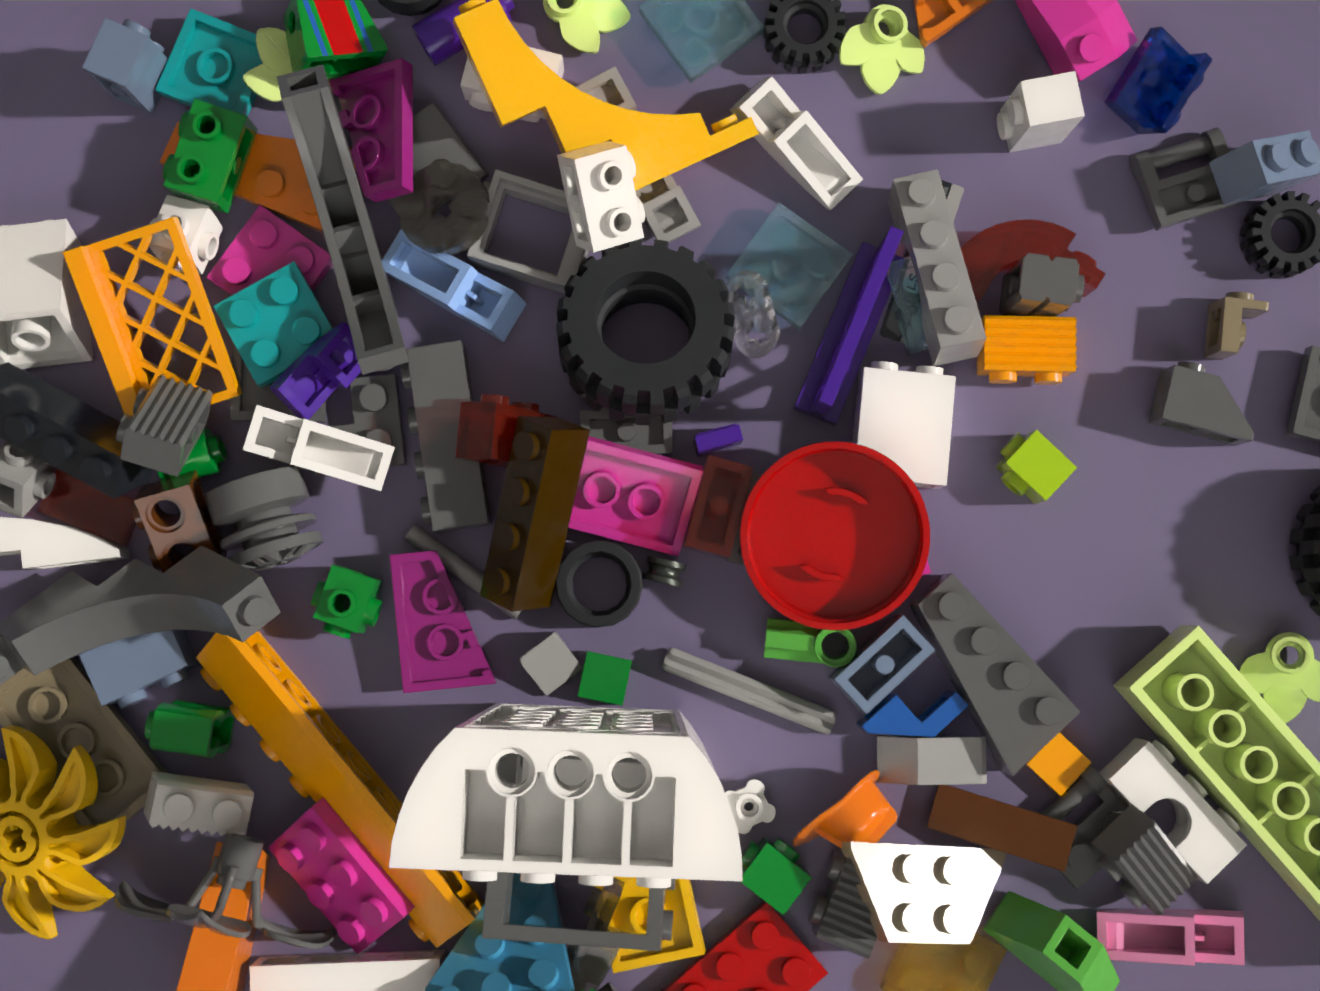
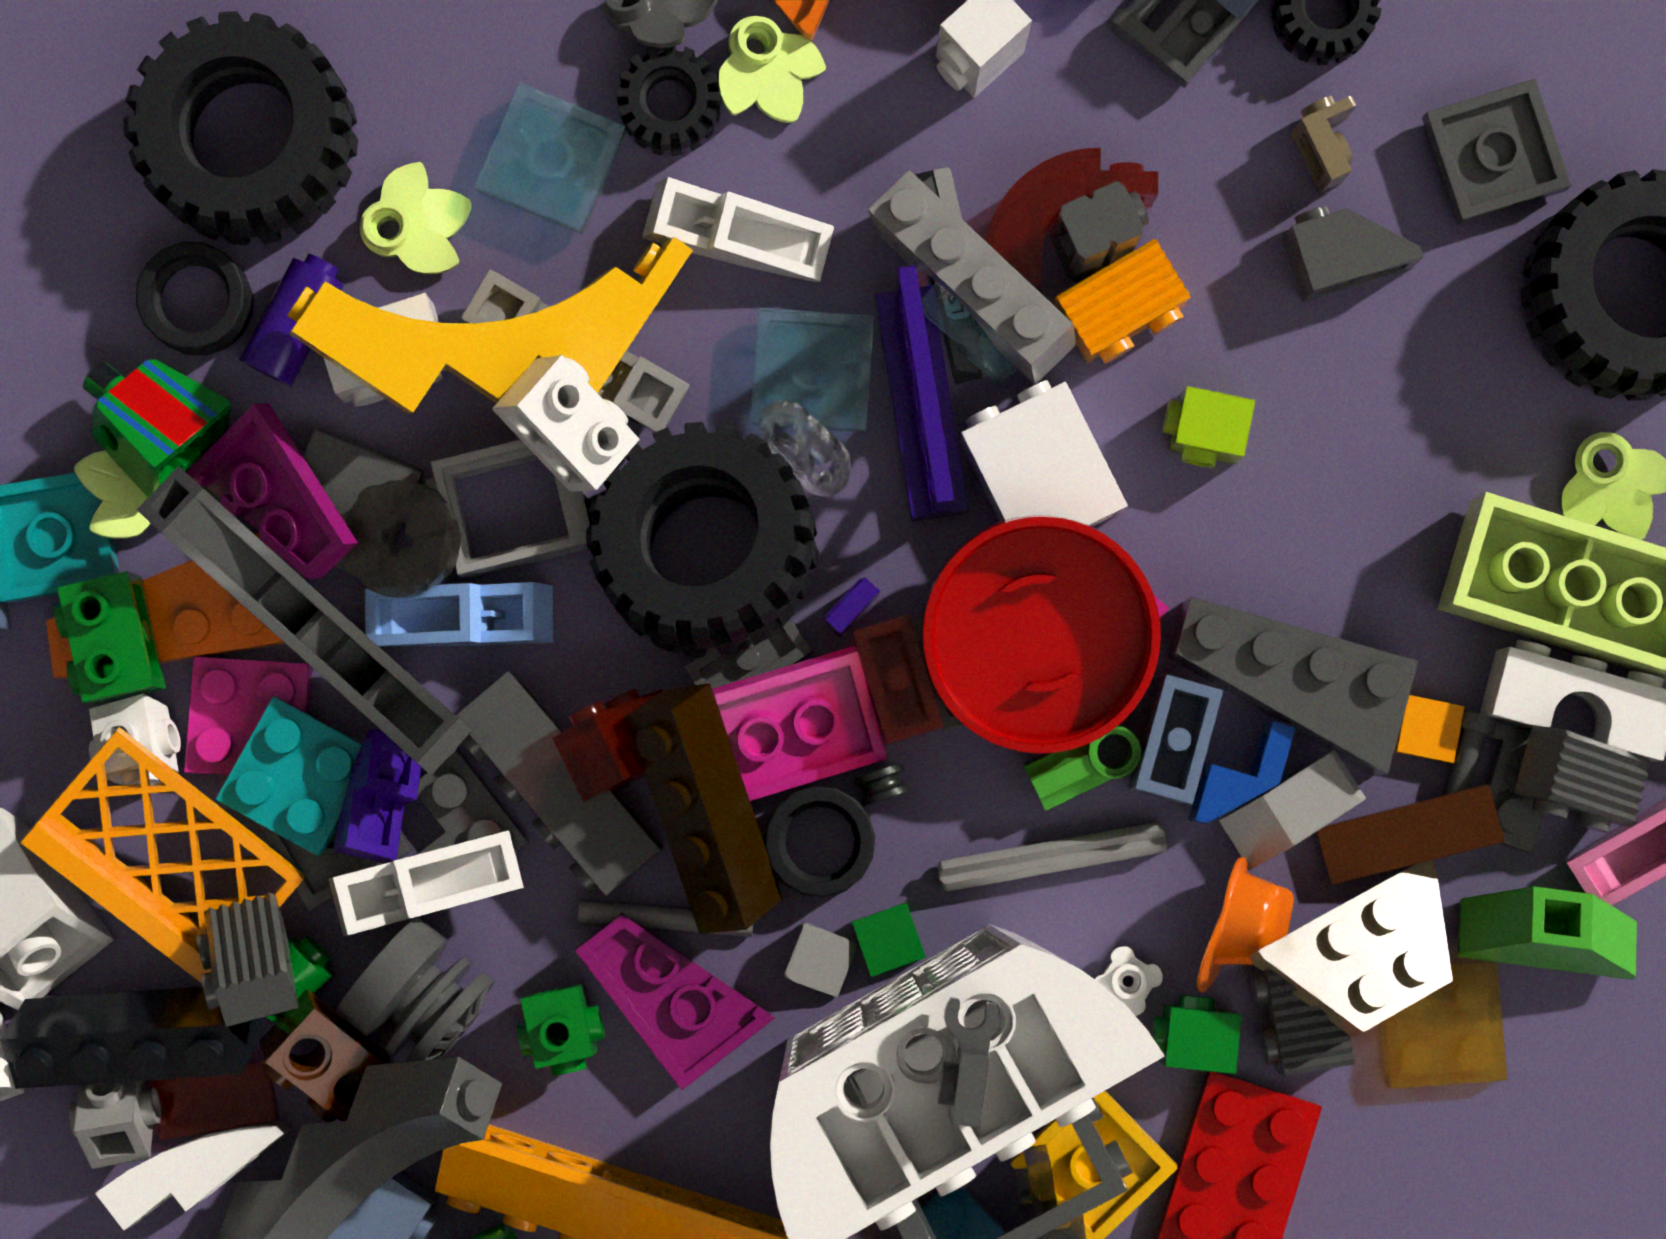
camera: 25 degrees left, 0 degrees up
(587, 809) = (965, 1081): none -> dark grey plate

